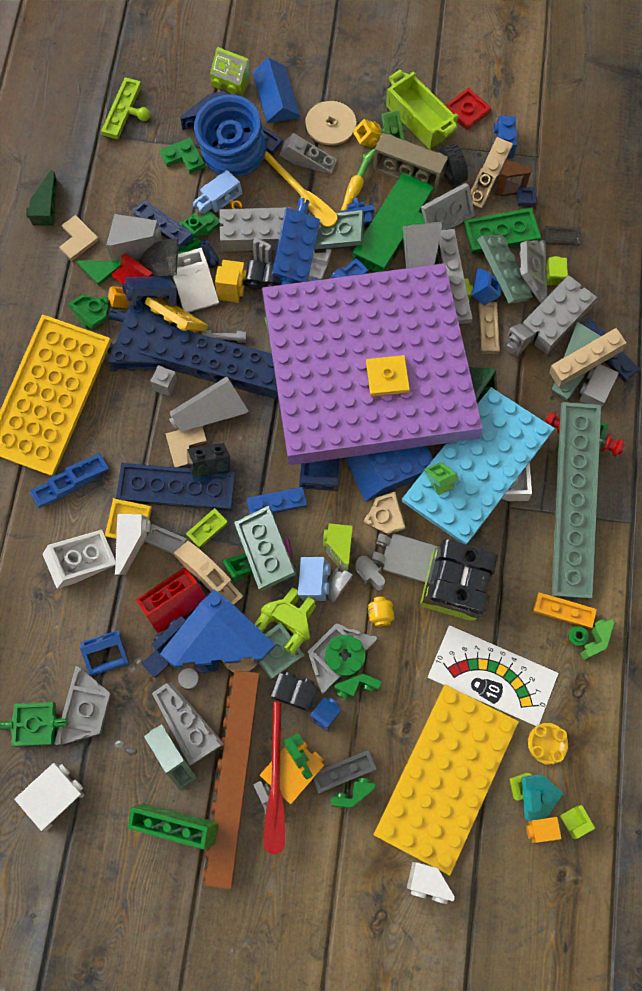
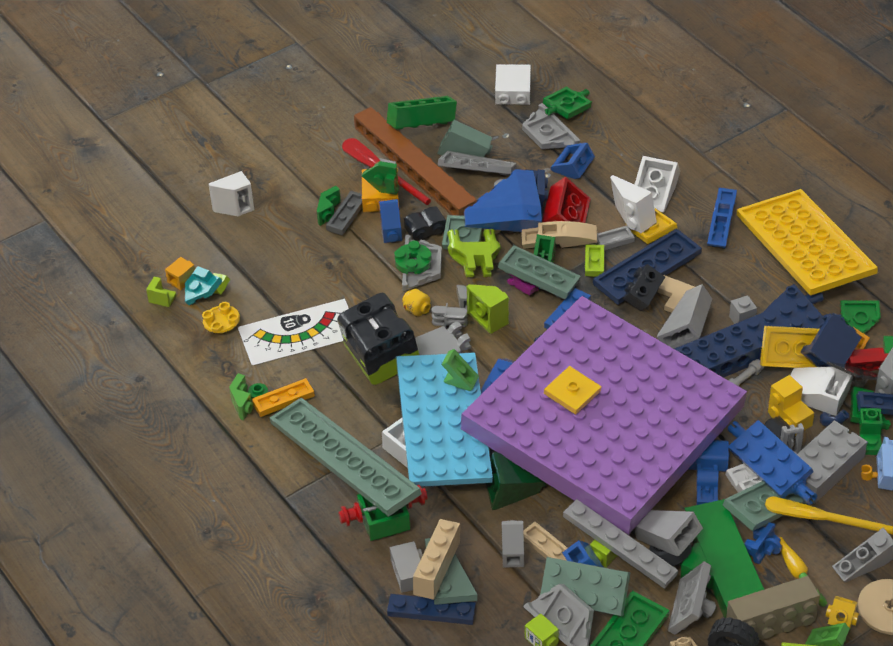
camera: 140 degrees right, 25 degrees down
(313, 578) = (484, 275): light blue brick -> none
(348, 687) = (385, 259): green slope -> none
(386, 514) = (484, 356): tan plate -> none
(446, 779) = (275, 259): yellow plate -> none
(559, 313) = (501, 594): light grey piece -> none

